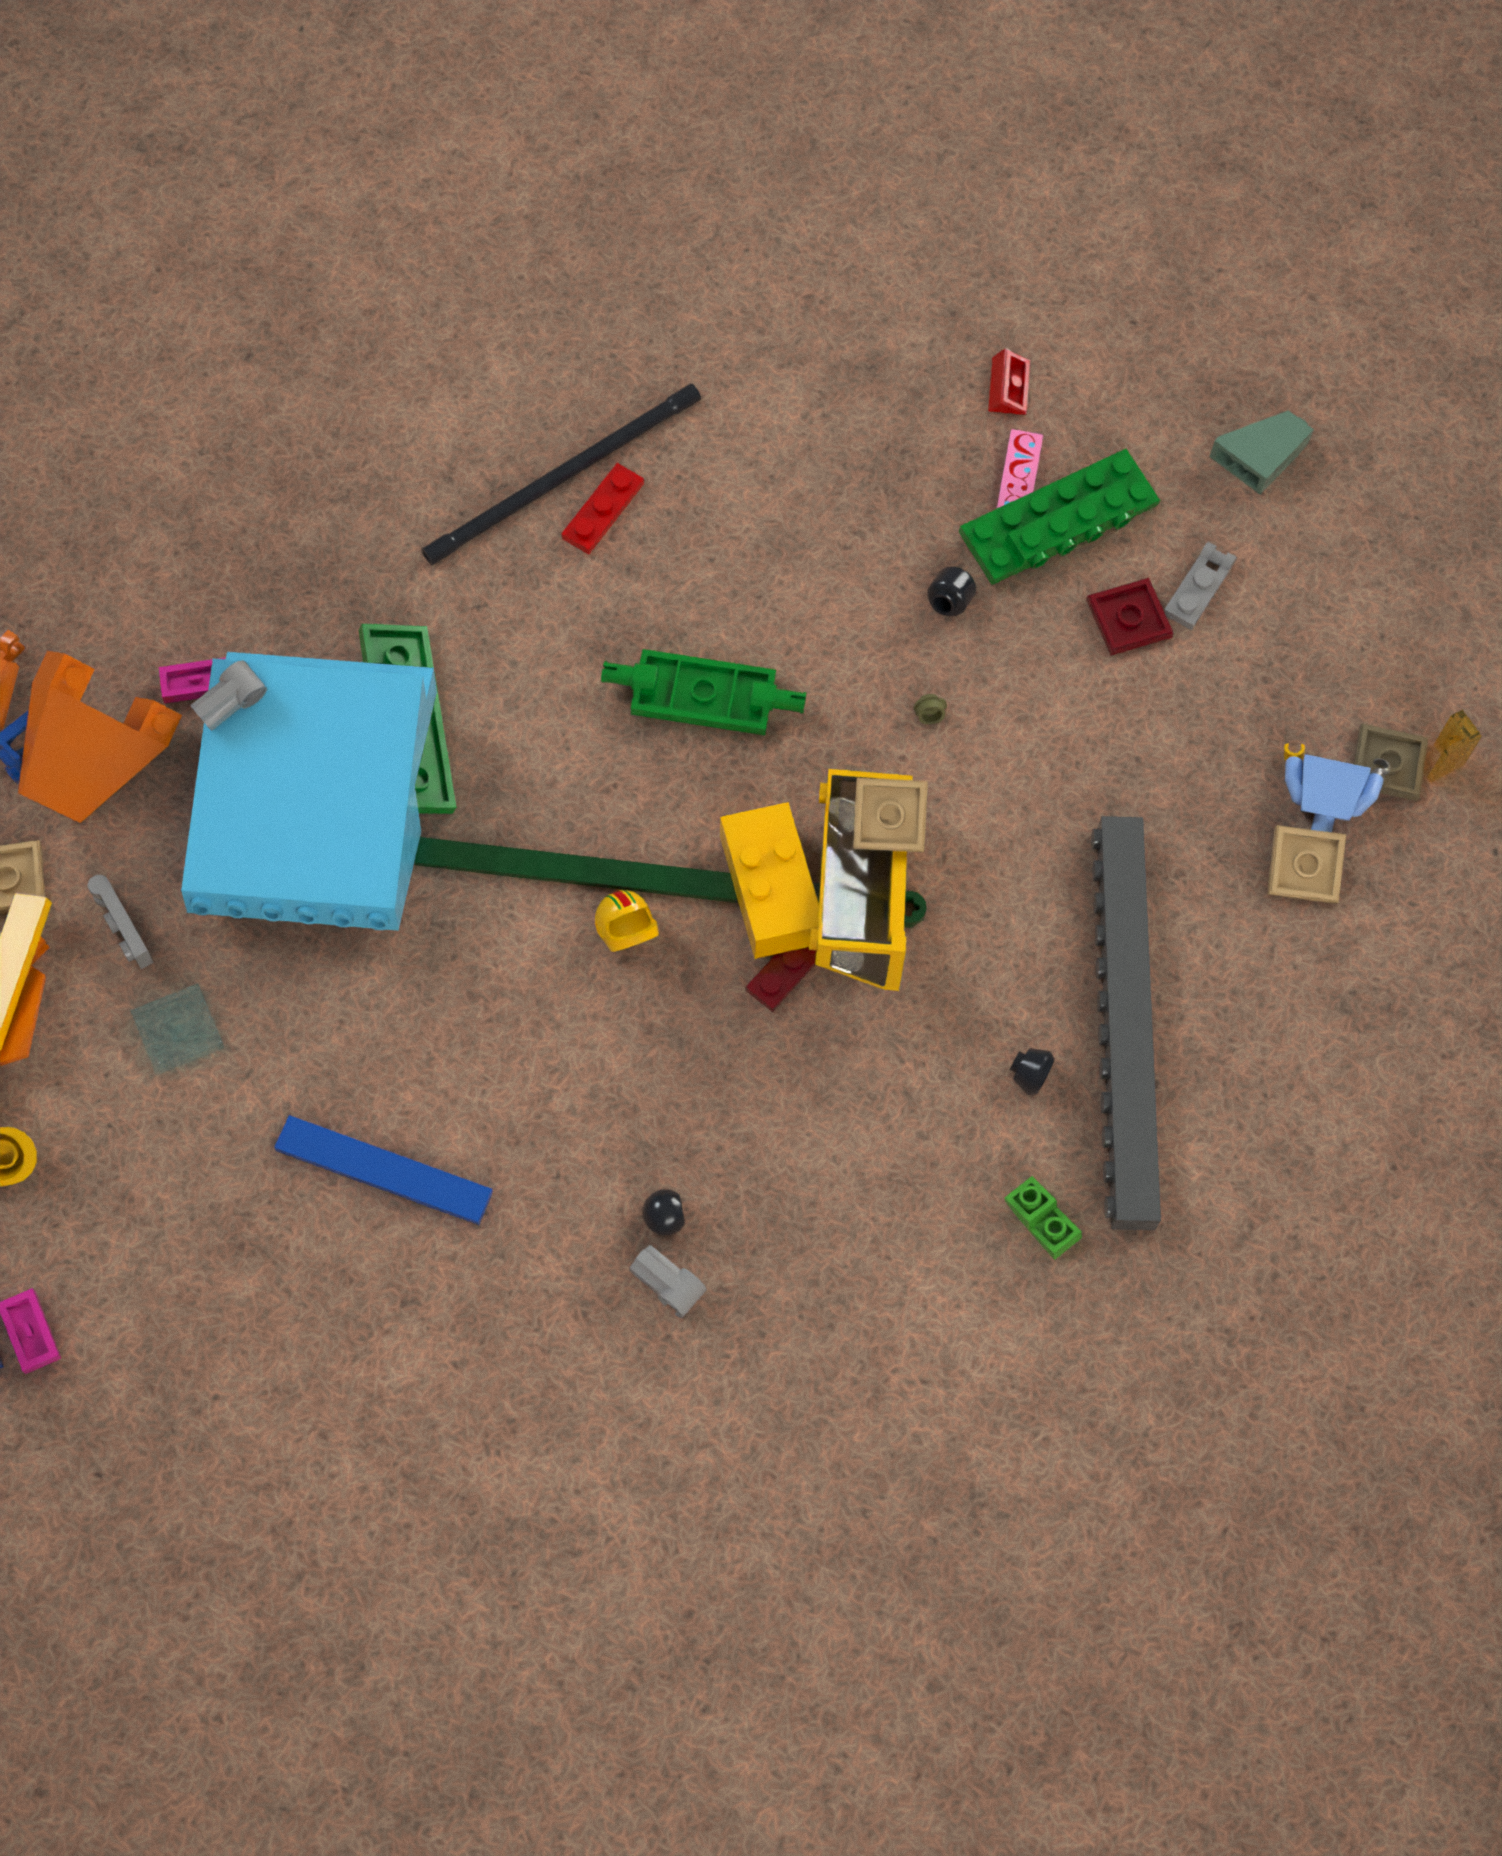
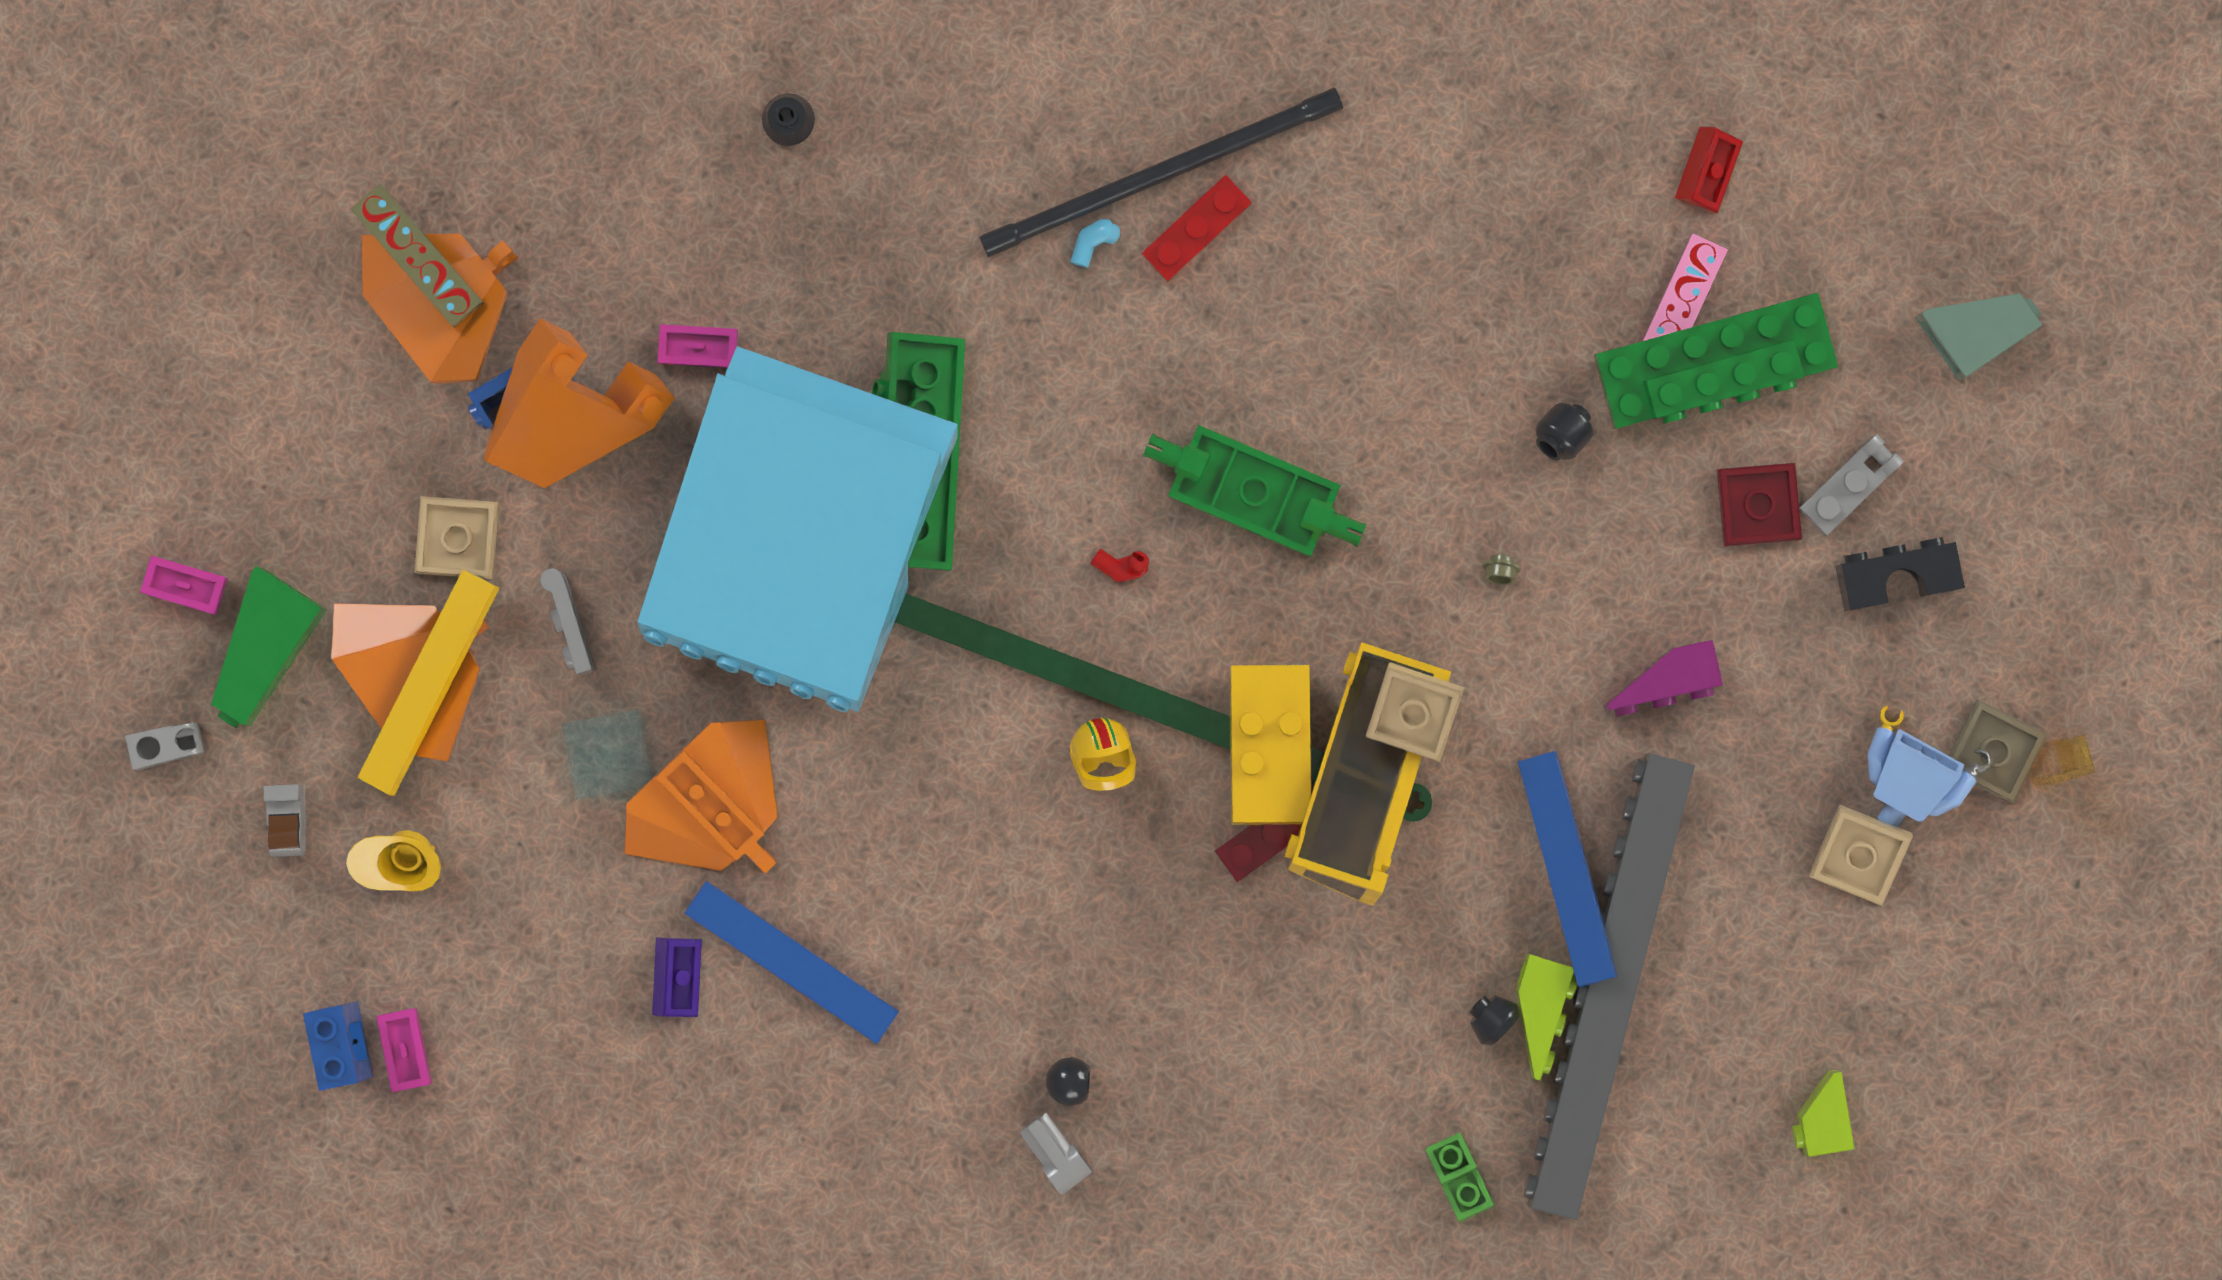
camera: 20 degrees right, 20 degrees up
(237, 689) = (732, 425): light grey piece -> none
(239, 496) = (790, 130): none -> black cone
(274, 1046) = (708, 801): none -> orange panel
(278, 1207) = (676, 977): none -> dark purple slope
(523, 524) = (1092, 236): none -> medium azure arm
(604, 779) = (1121, 569): none -> red arm
(1061, 928) = (1567, 869): none -> blue tile
(1069, 1038) = (1540, 1000): none -> lime slope
(1106, 753) = (1677, 672): none -> magenta slope
(1285, 627) = (1933, 567): none -> black arch
(1351, 1088) = (1824, 1119): none -> lime slope

